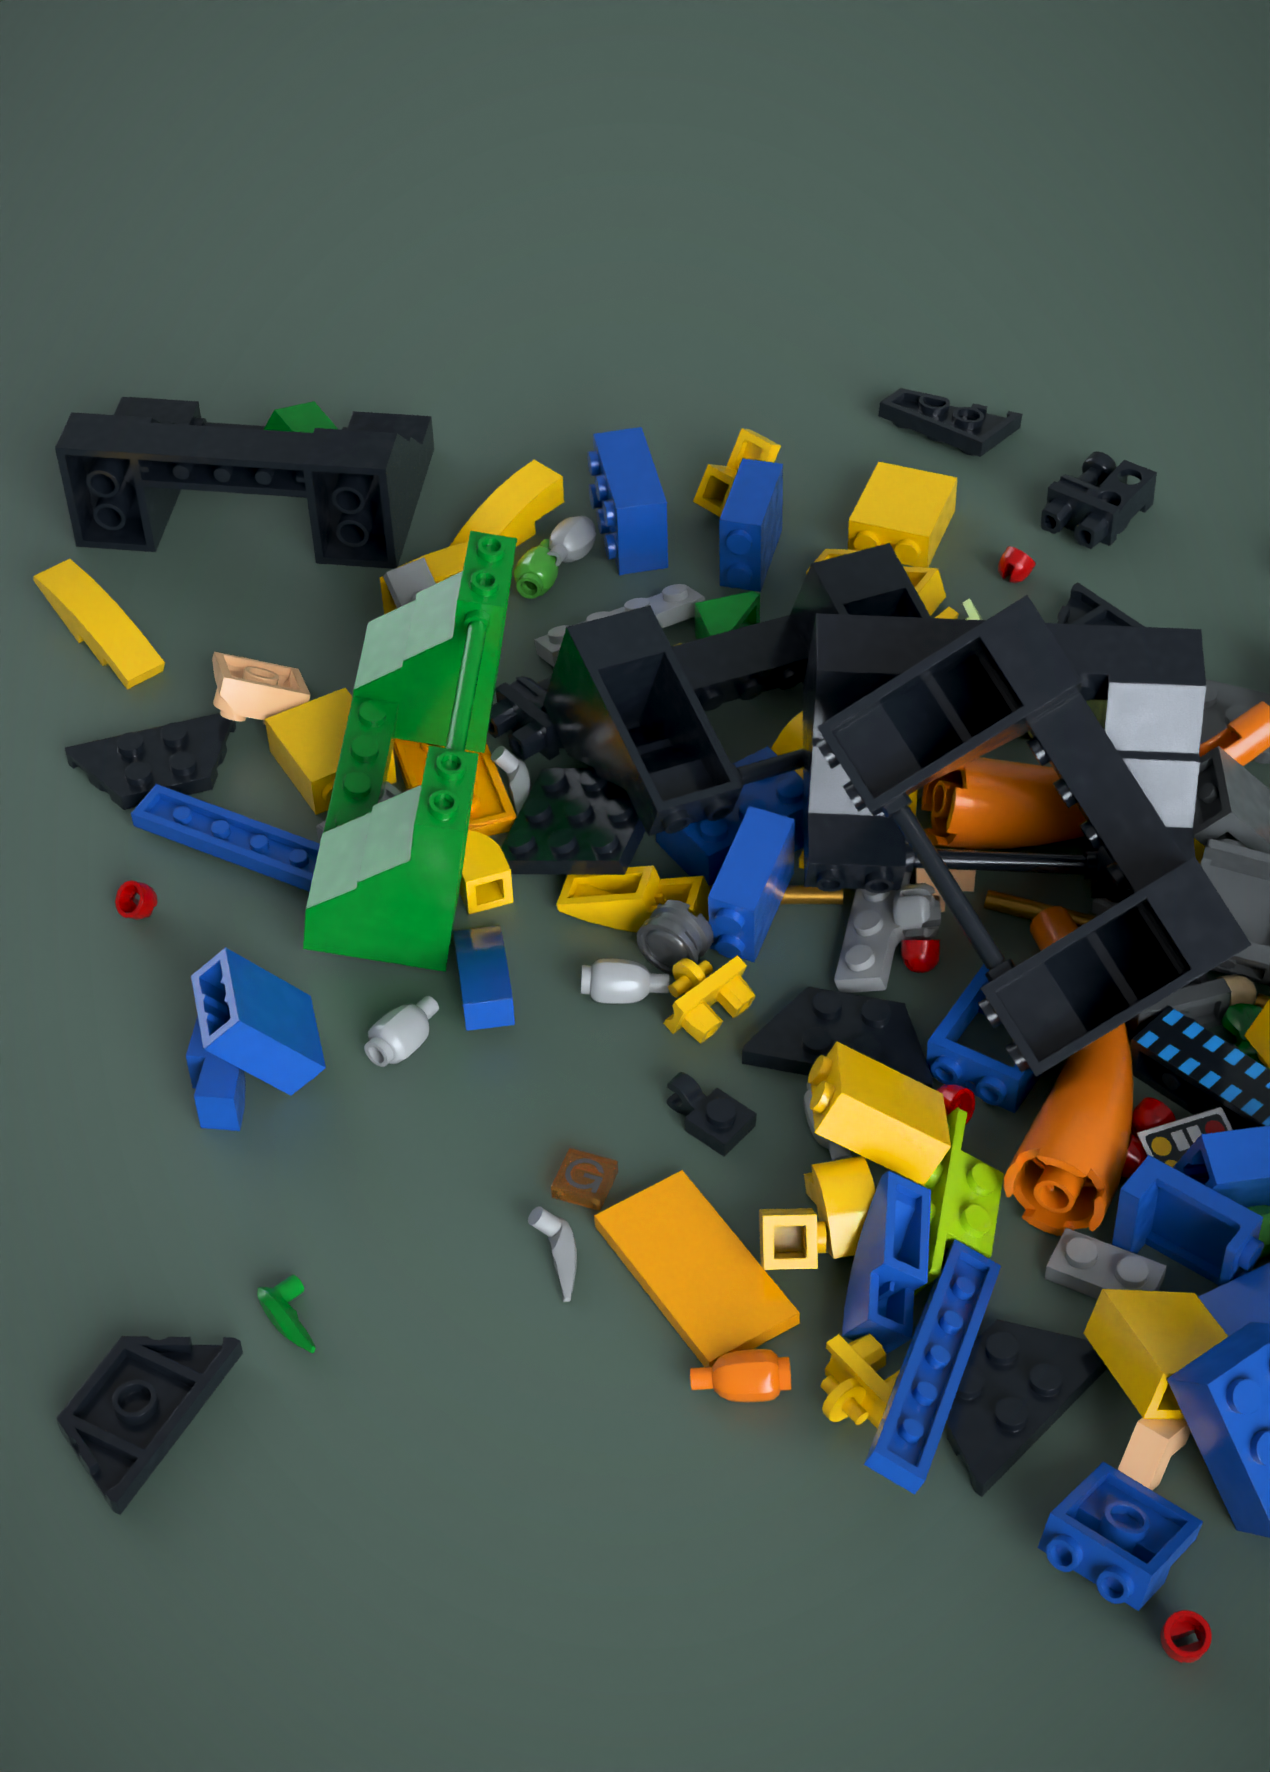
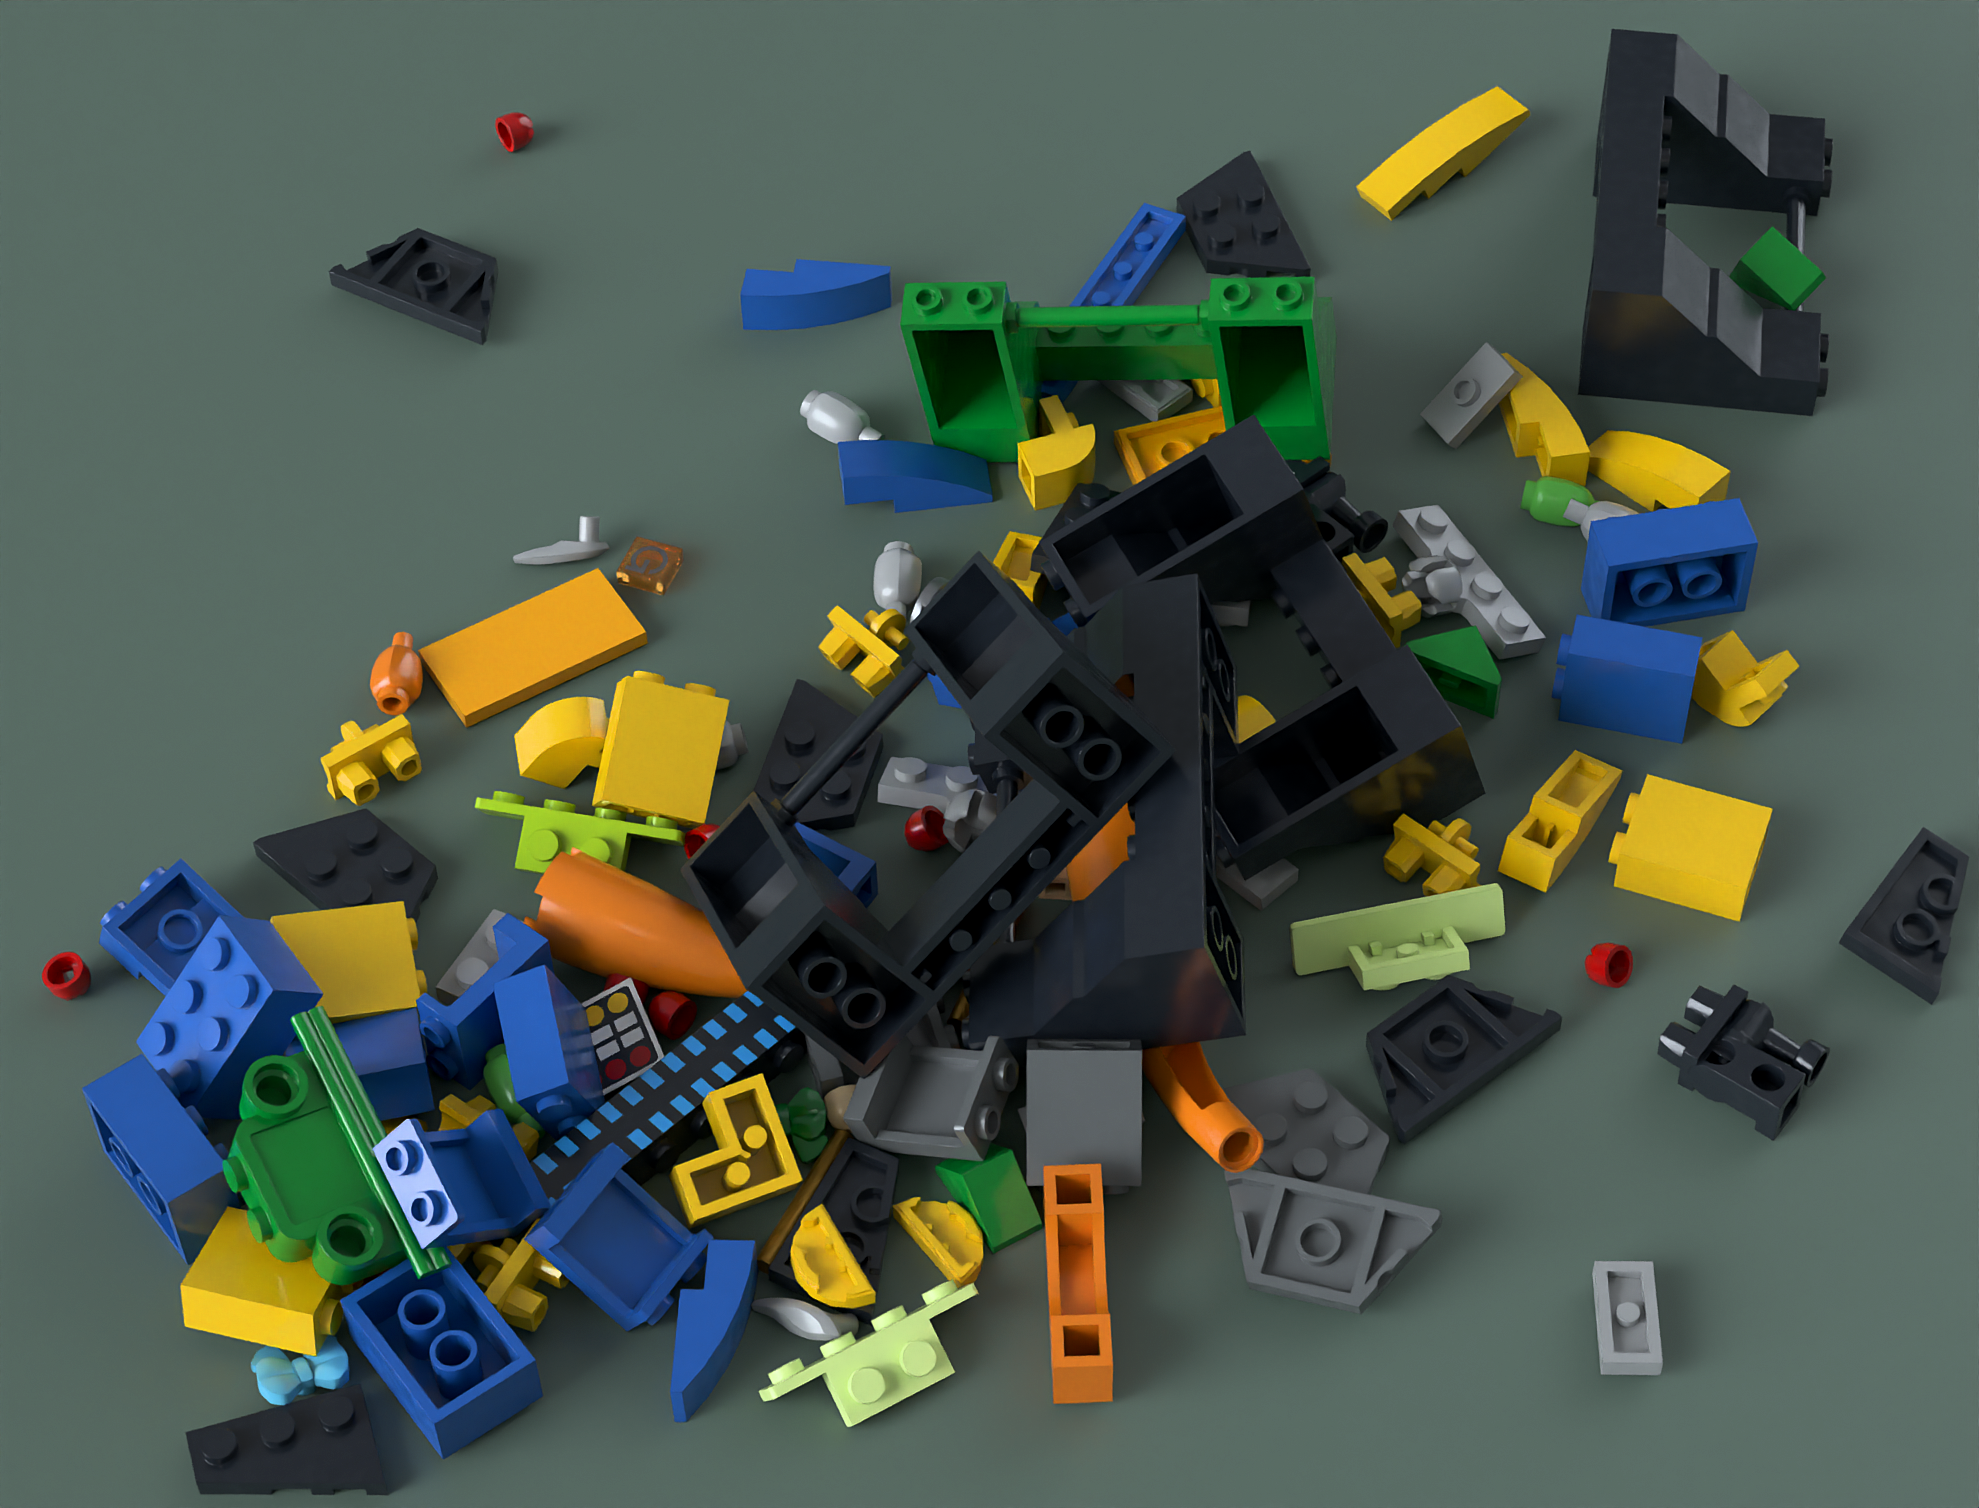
camera: 90 degrees right, 5 degrees up
(132, 908) = (1030, 225): red hinge -> none
(255, 687) = (1343, 267): light nougat slope -> none
(257, 1022) = (824, 300): blue brick -> none
(282, 1315) = (519, 363): green bar -> none
(713, 1118) = (721, 661): black plate -> none
(790, 1238) = (528, 687): yellow brick -> none
(889, 1263) = (488, 764): blue slope -> none
(933, 1368) = (364, 790): blue plate -> none

